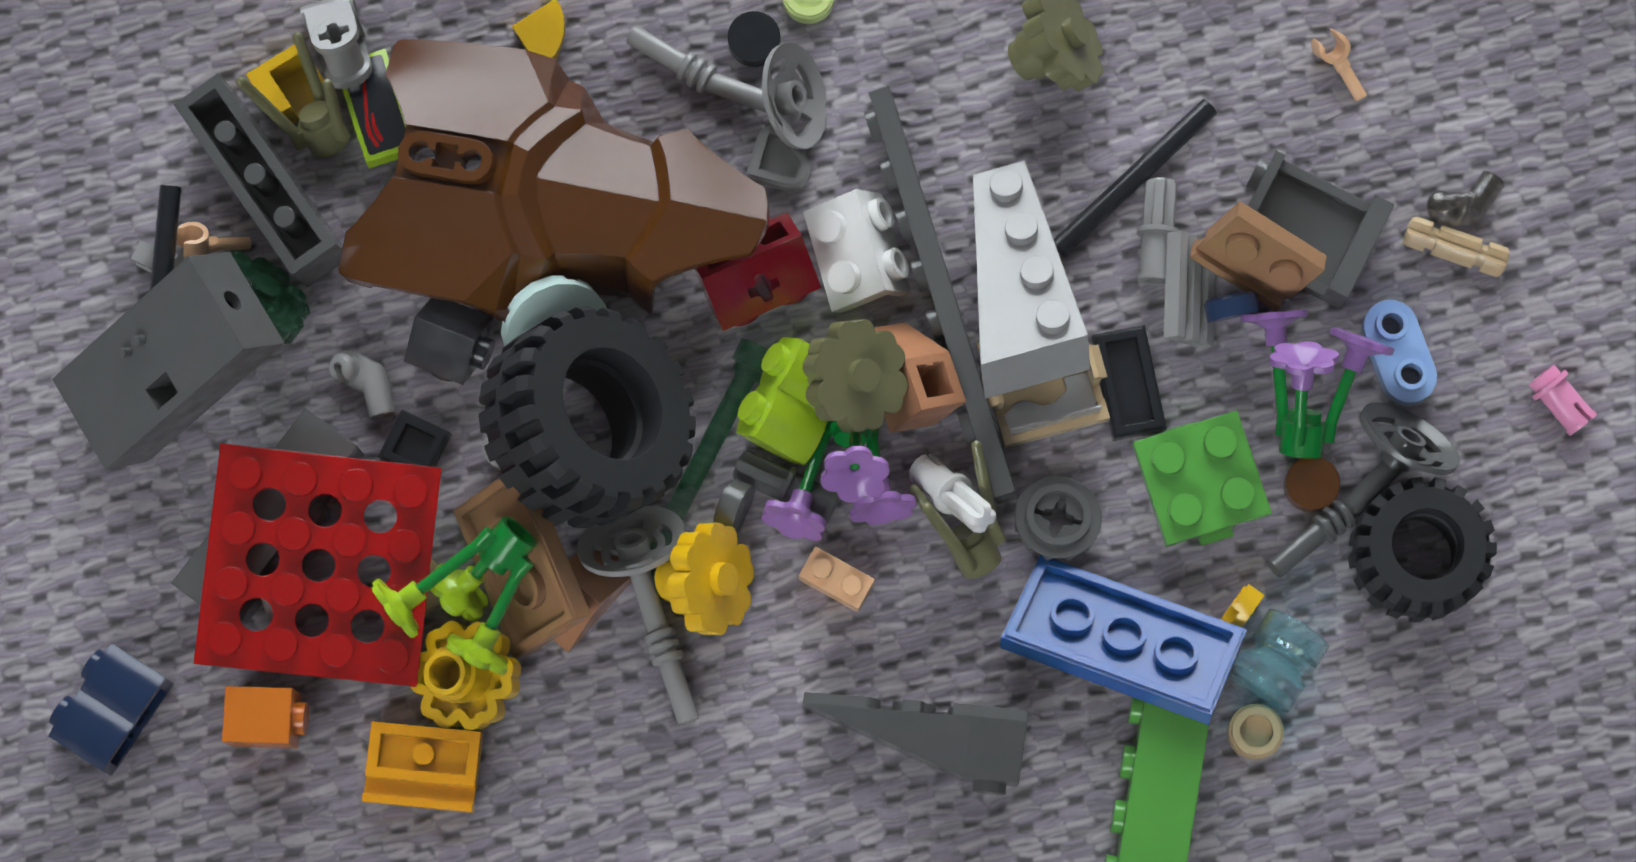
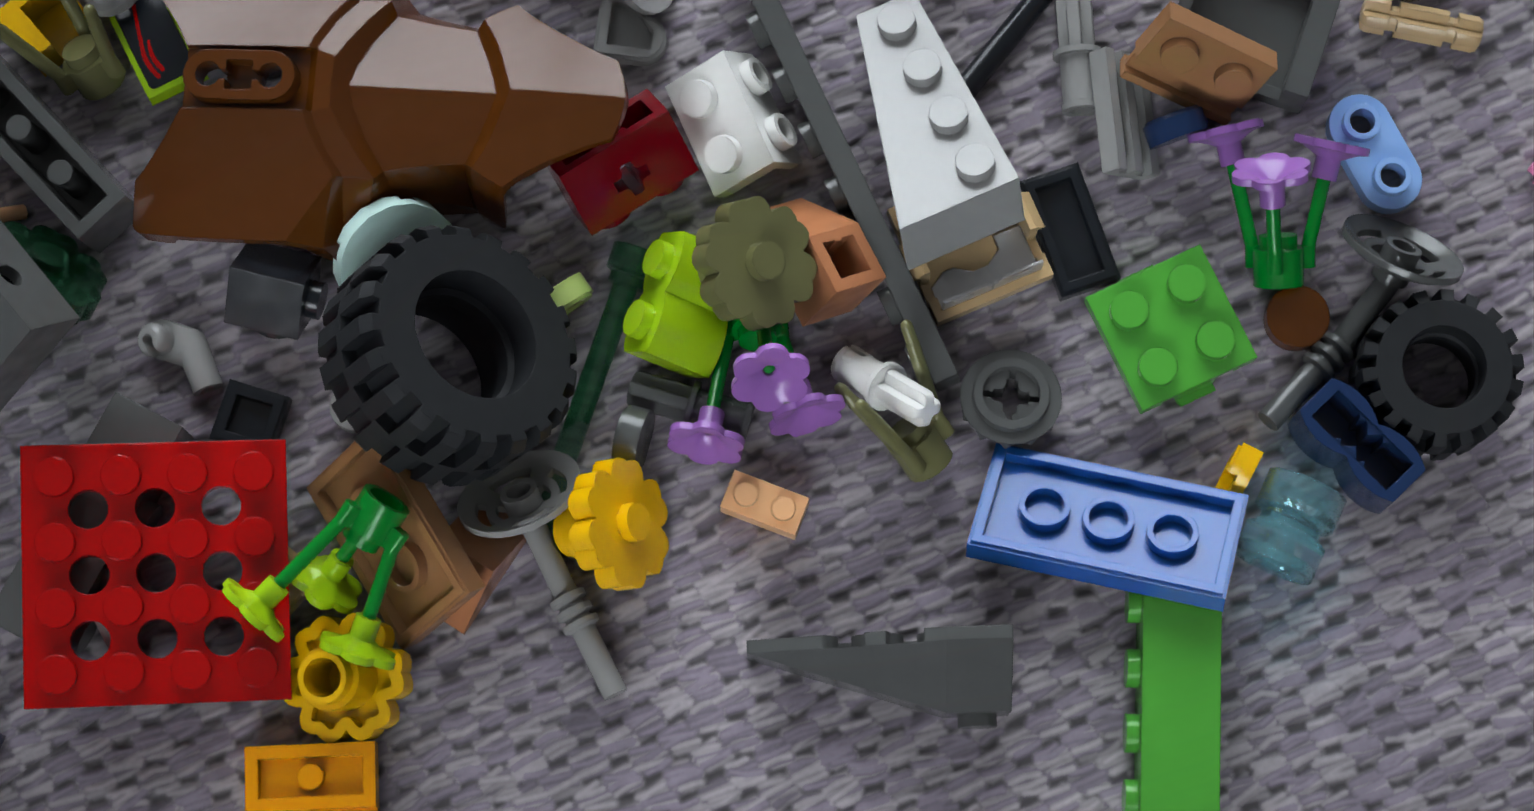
camera: 10 degrees left, 0 degrees up
(264, 717) = (116, 760): orange brick -> none
(699, 377) = (572, 292): none -> yellowish green tile
(1255, 731) = (1274, 612): tan tile -> none
(1335, 589) = (1367, 458): none -> dark blue brick

